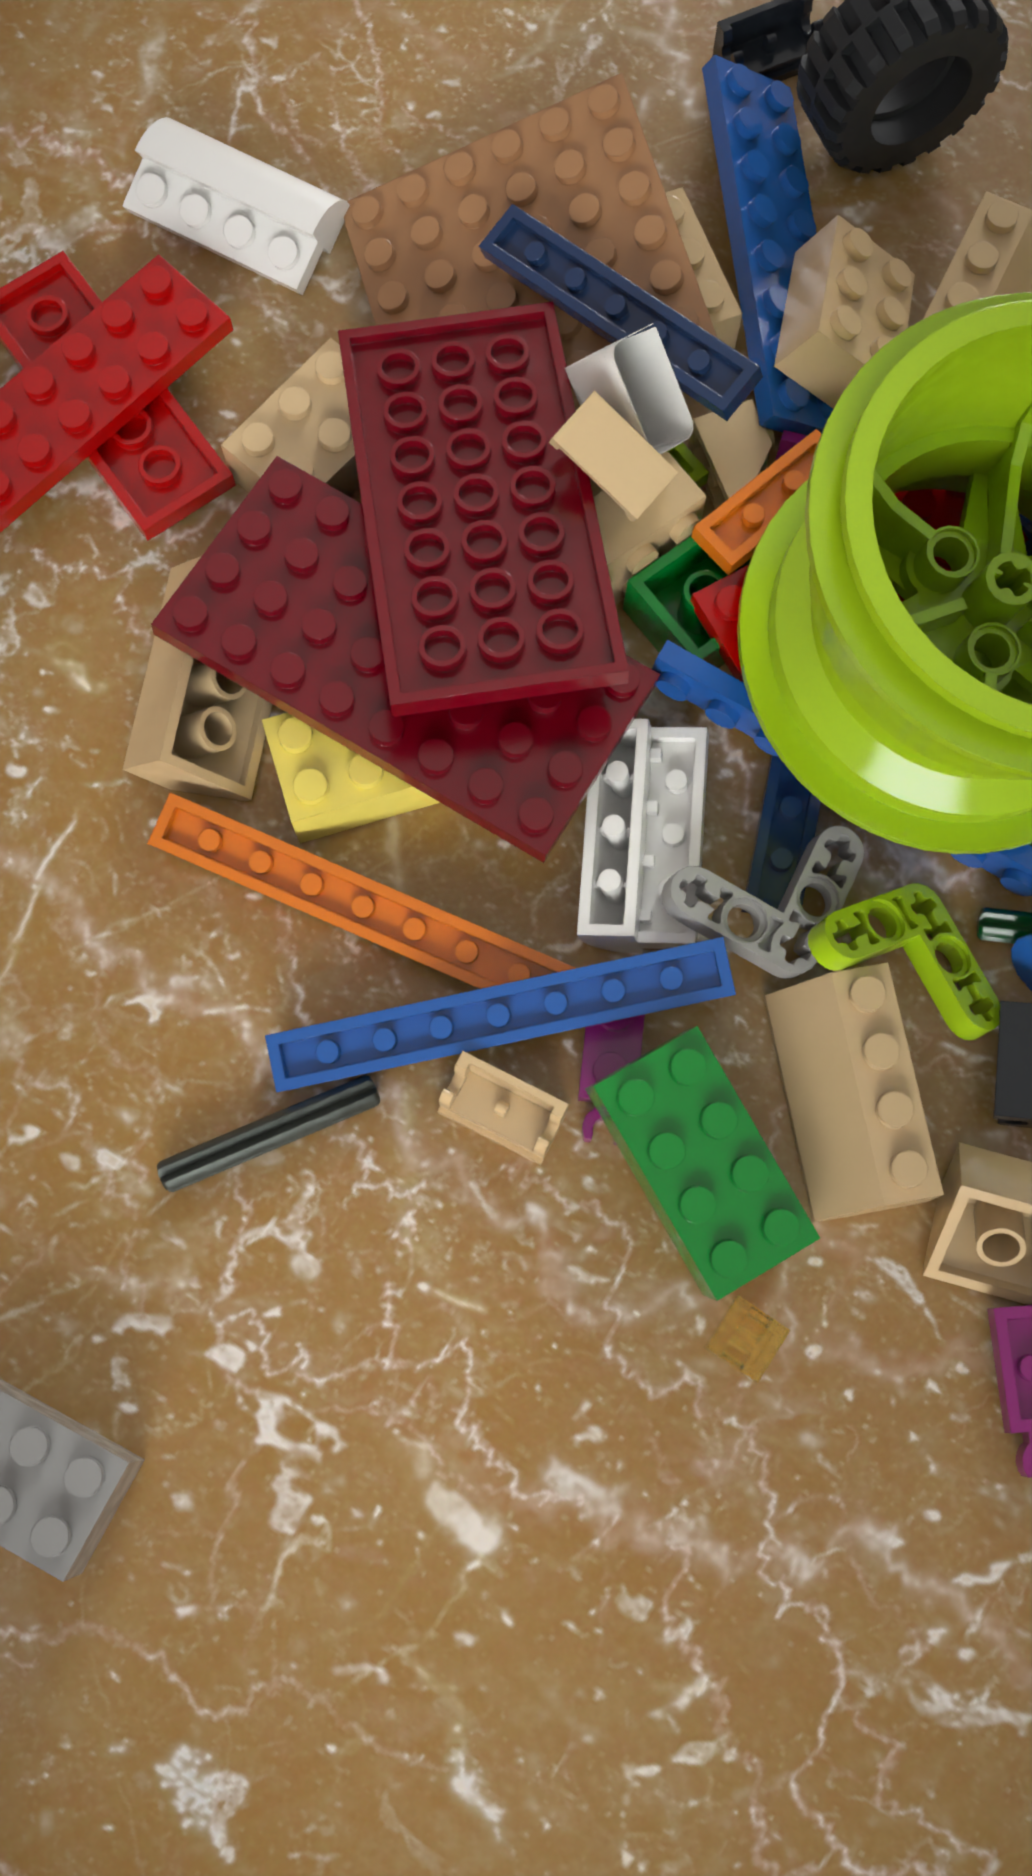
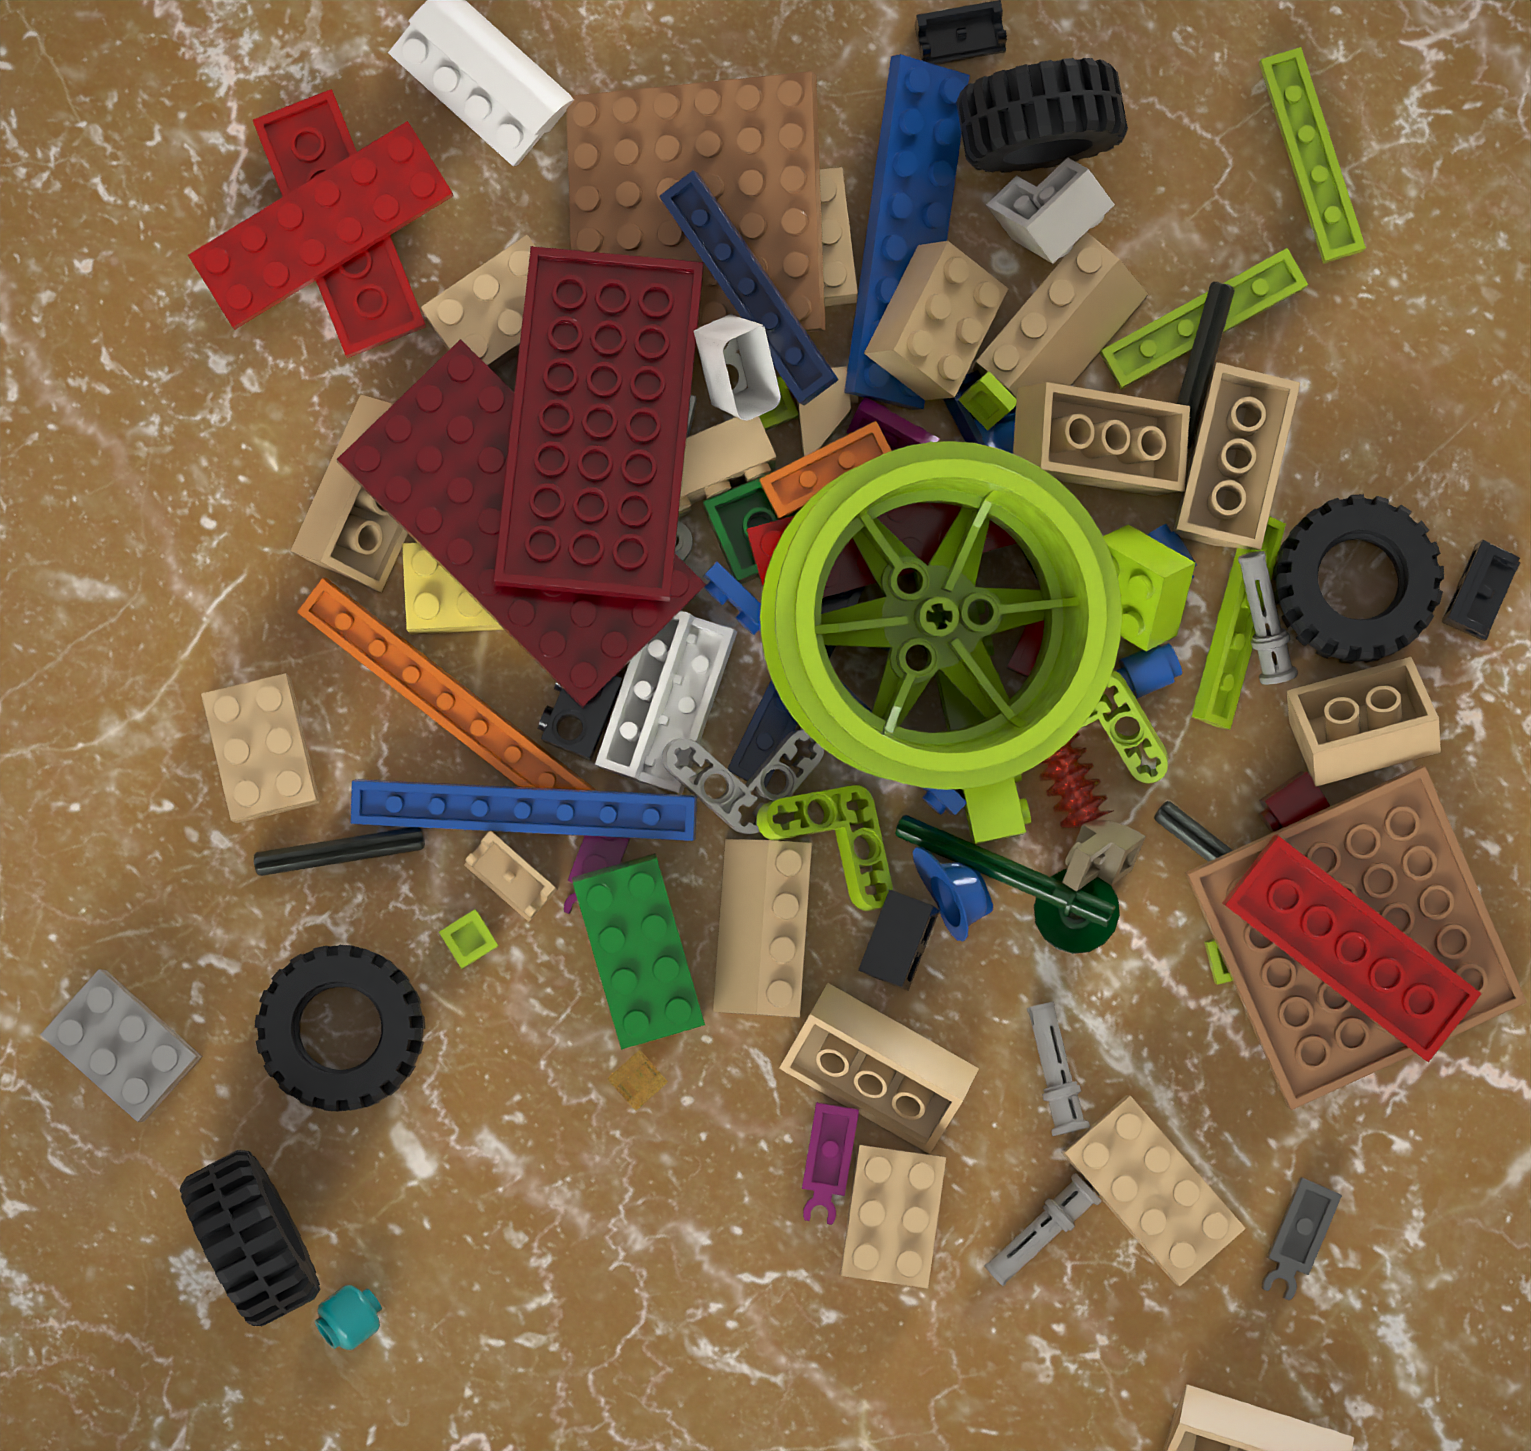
camera: 10 degrees right, 10 degrees up
(135, 1024) = (260, 748): none -> tan brick
(239, 1389) = (280, 1028): none -> black tyre
(257, 1726) = (249, 1238): none -> black tyre
(431, 1794) = (348, 1317): none -> teal head
(468, 1205) = (468, 939): none -> lime plate
(550, 879) = (592, 716): none -> black brick
(614, 456) = (705, 421): tan hinge -> none
(940, 179) = (1053, 213): none -> white brick

